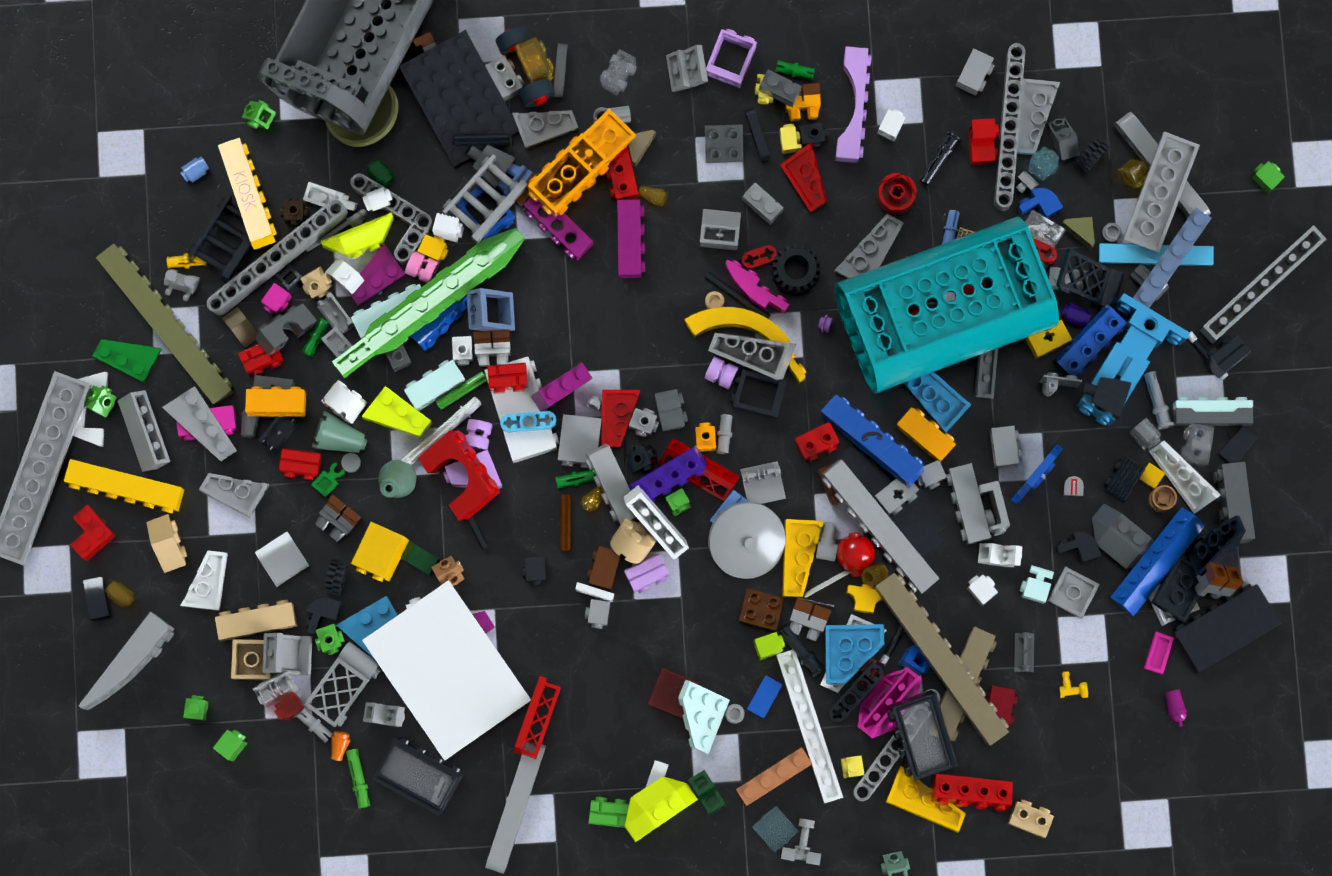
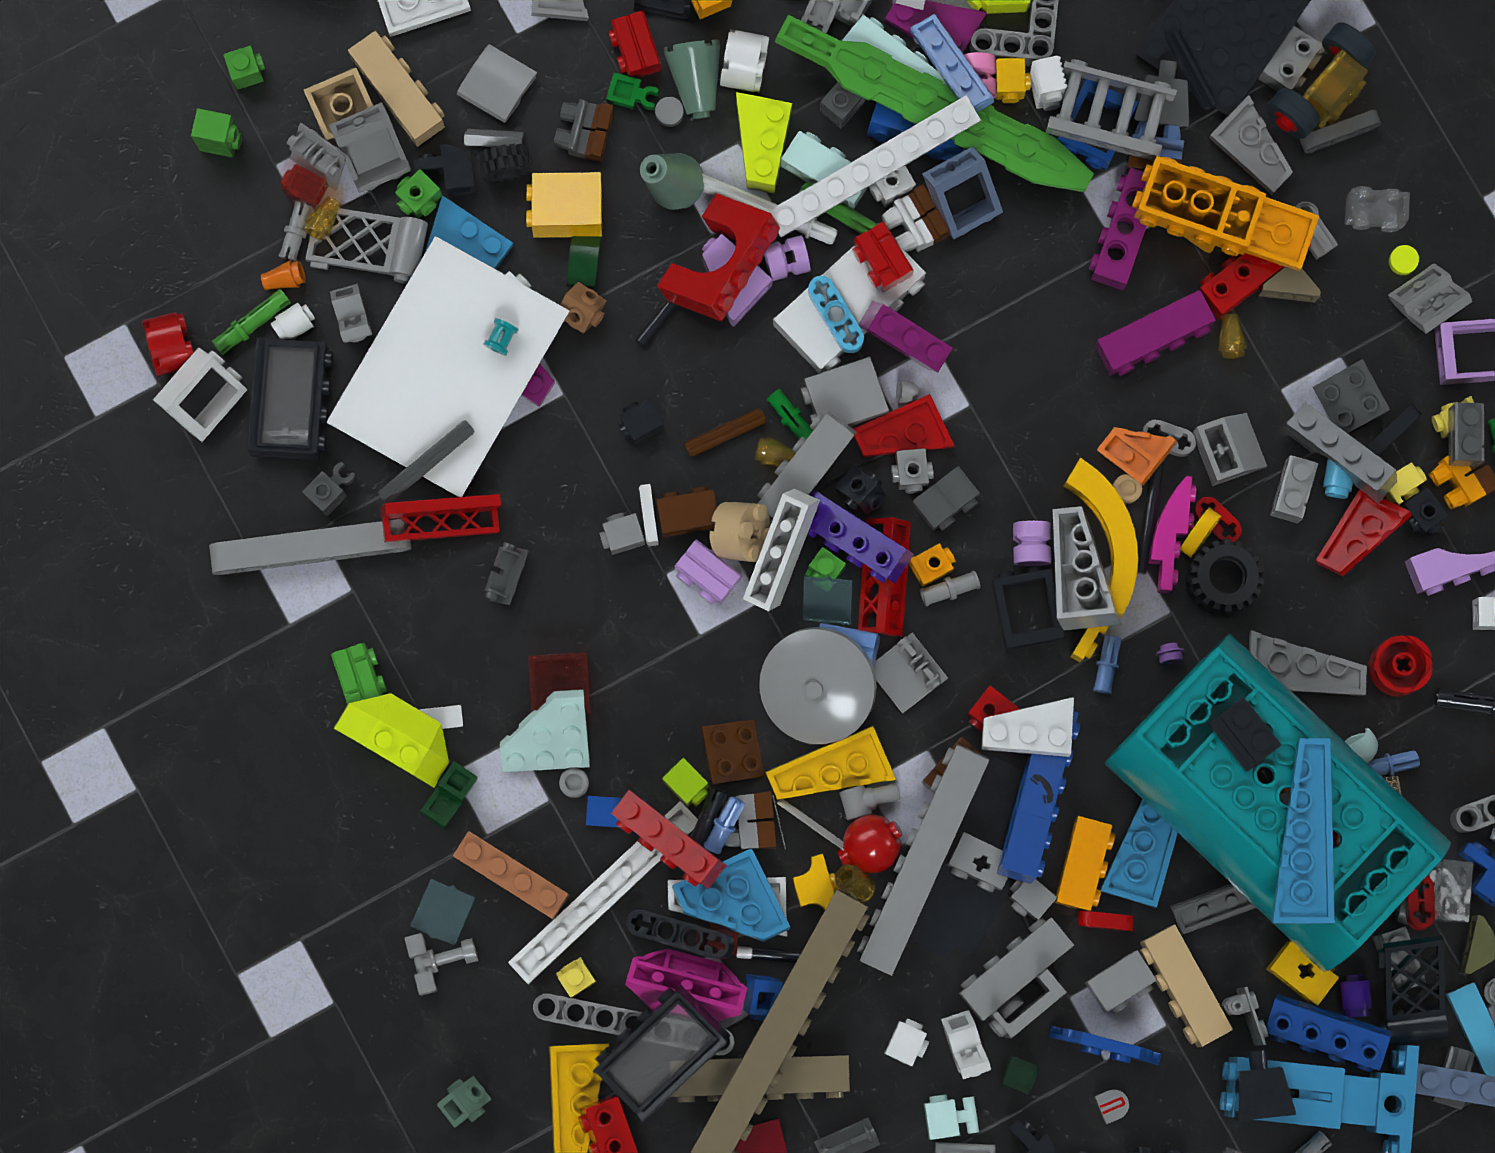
camera: 65 degrees right, 0 degrees up
(316, 576) = (492, 138): none -> light grey tile
(316, 705) = (322, 218): none -> clear yellow cone
(348, 835) = (167, 343): none -> red brick
(371, 752) = (293, 322): none -> white brick
(380, 834) = (187, 379): none -> white window
(409, 279) = (951, 62): none -> medium blue tile
(445, 629) = (508, 329): none -> teal bush
(449, 355) = (875, 165): none -> white plate
(487, 779) = (326, 491): none -> dark grey brick
(499, 709) = (426, 462): none -> dark grey axle
(594, 698) = (502, 586): none -> dark grey hinge
(655, 72) = (1403, 260): none -> neon yellow tile
(696, 285) = (1136, 452): none -> orange wing
(698, 264) = (1173, 431): none -> light grey beam
(698, 509) = (827, 600): none -> clear light blue piece
(762, 271) = (1200, 532): none -> yellow beam
(763, 160) = (1362, 466): none -> arch
(767, 173) = (1336, 481): none -> medium azure brick
(803, 669) = (666, 837): none -> red brick
(804, 634) = (724, 825): none -> medium blue axle
(814, 363) = (1107, 664): none -> medium blue axle
(834, 426) = (1032, 730): none -> white wing
(903, 303) = (1244, 735): none -> black plate
(932, 238) = (1364, 744): none -> light aqua hair
(965, 438) = (1105, 920): none -> red beam
(992, 303) = (1306, 861): none -> dark azure wing
(1025, 410) = (1186, 986): none -> tan brick
(1031, 532) = (1019, 1075): none -> clear green brick

